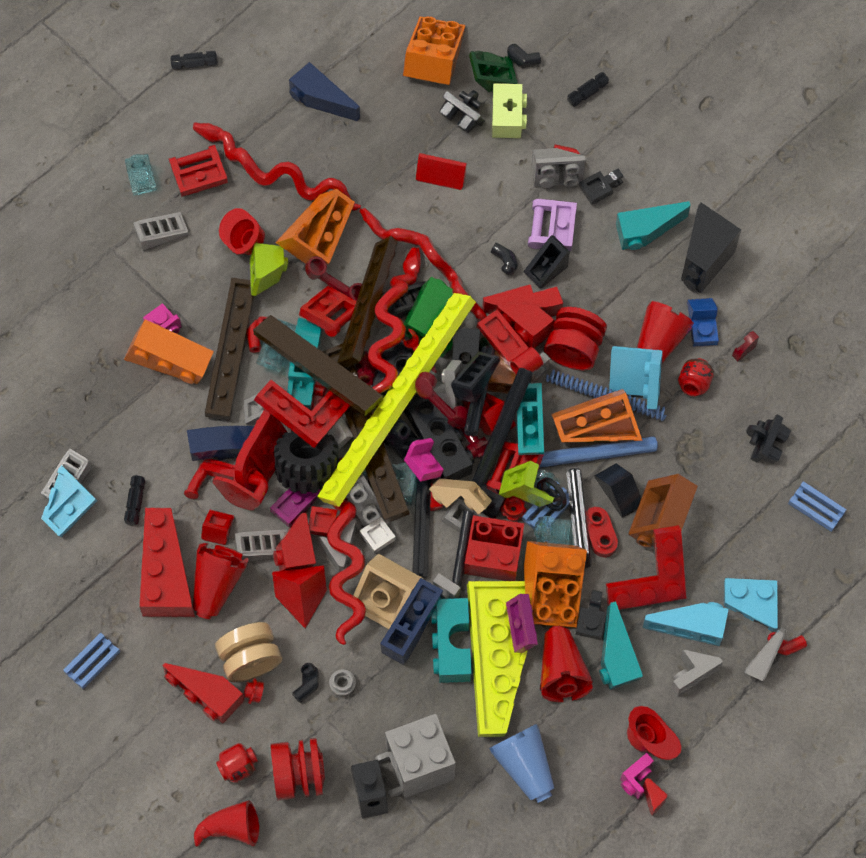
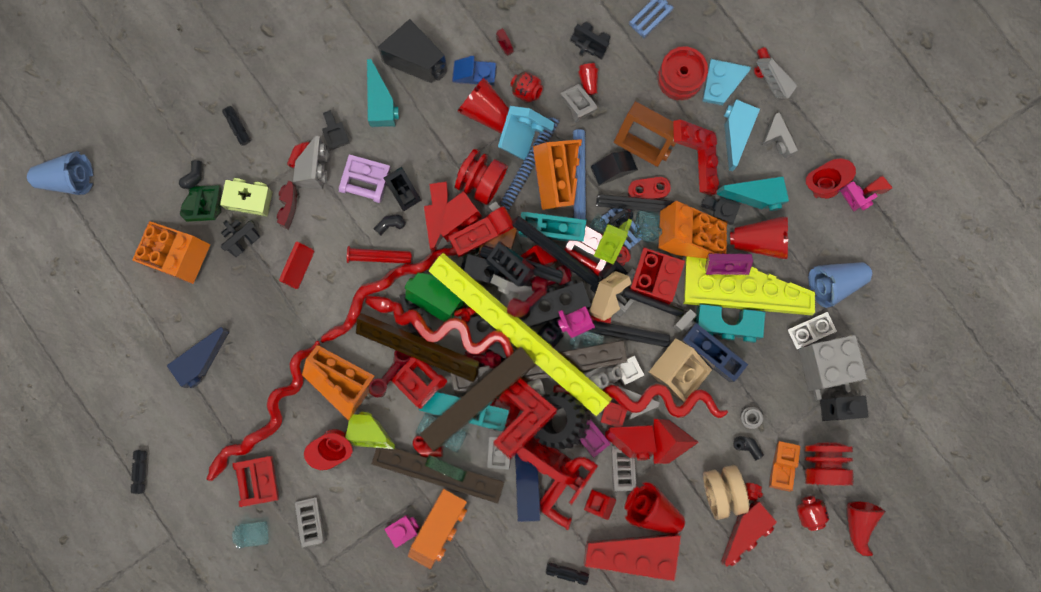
camera: 85 degrees left, 15 degrees up
(236, 349) = (445, 468): none -> clear green beam
(288, 727) = (784, 466): none -> orange slope
(461, 742) = (812, 330): none -> white slope
(466, 251) = (386, 256): none -> red axle
(516, 152) = (288, 197): none -> dark red slope
(687, 434) = (578, 102): none -> light grey slope
(723, 444) = (589, 77): none -> red cone
(748, 545) = (682, 73): none -> red wheel

